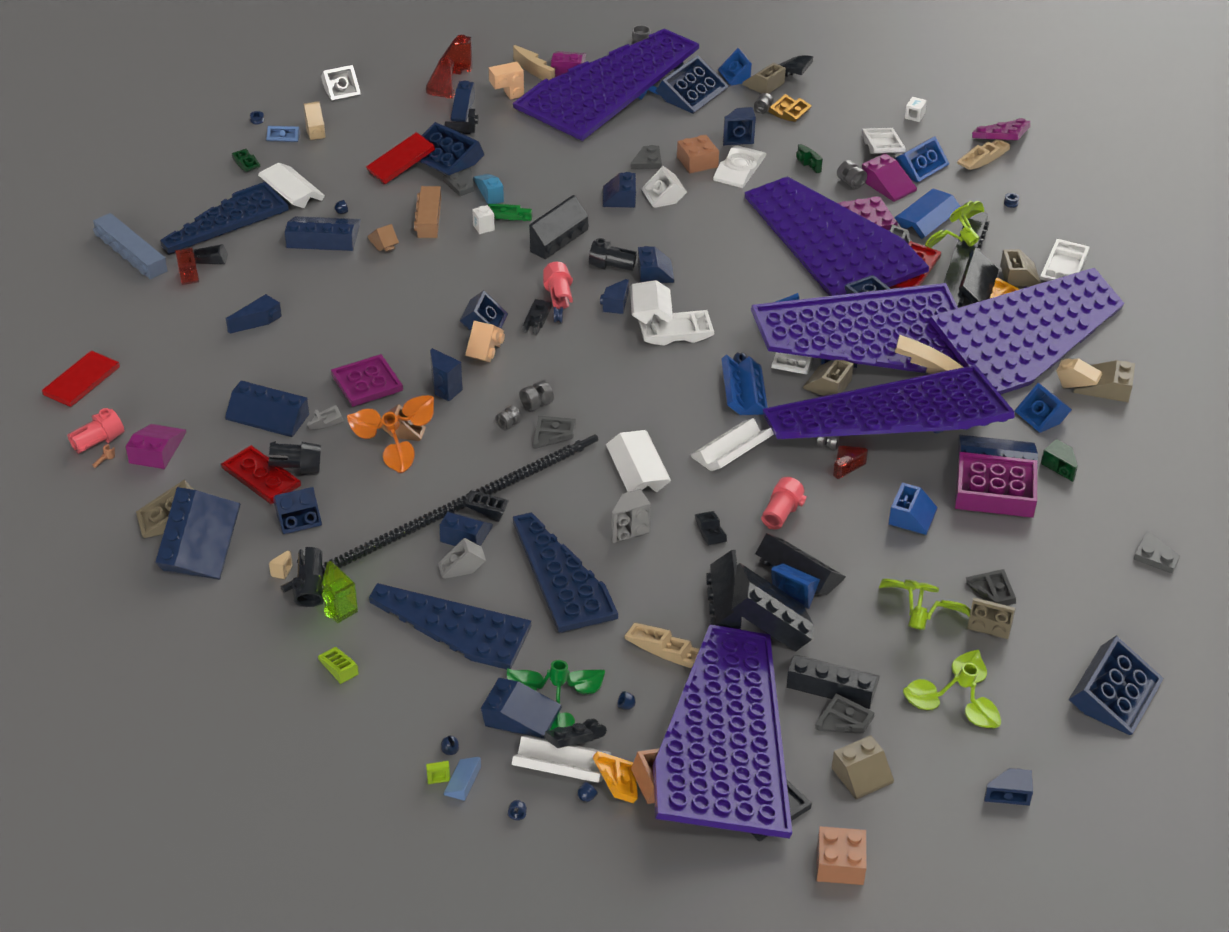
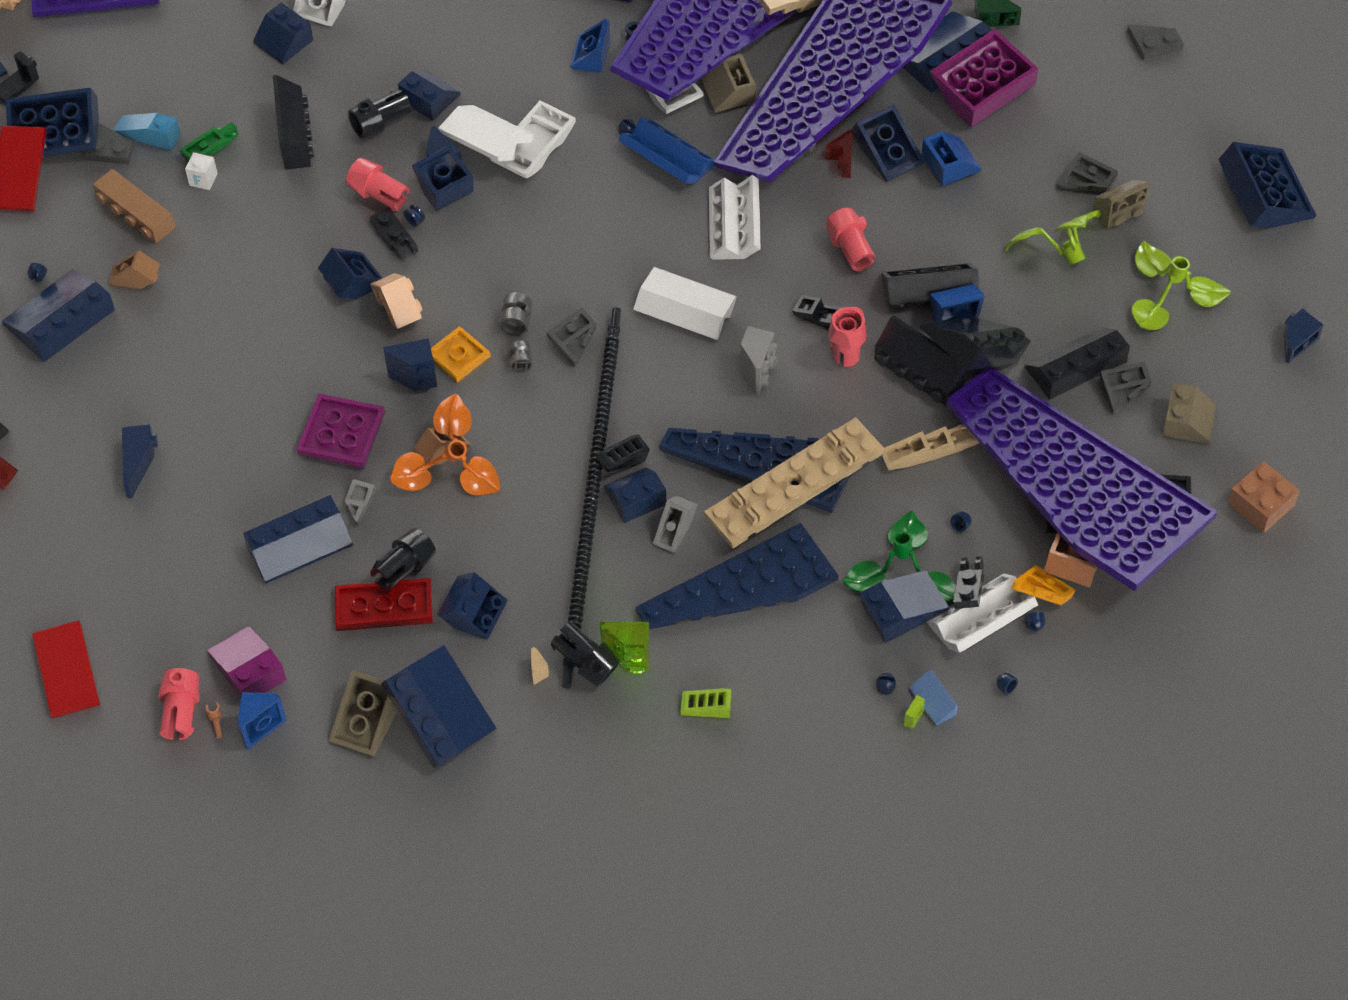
camera: 45 degrees left, 15 degrees up
(113, 466) = (259, 716): none -> blue slope
(481, 394) = (459, 354): none -> light orange tile
(573, 598) = (773, 496): none -> tan piece
(595, 306) = (443, 178): none -> dark blue slope
(697, 539) = (847, 334): none -> coral piece
(883, 473) = (888, 143): none -> dark blue slope

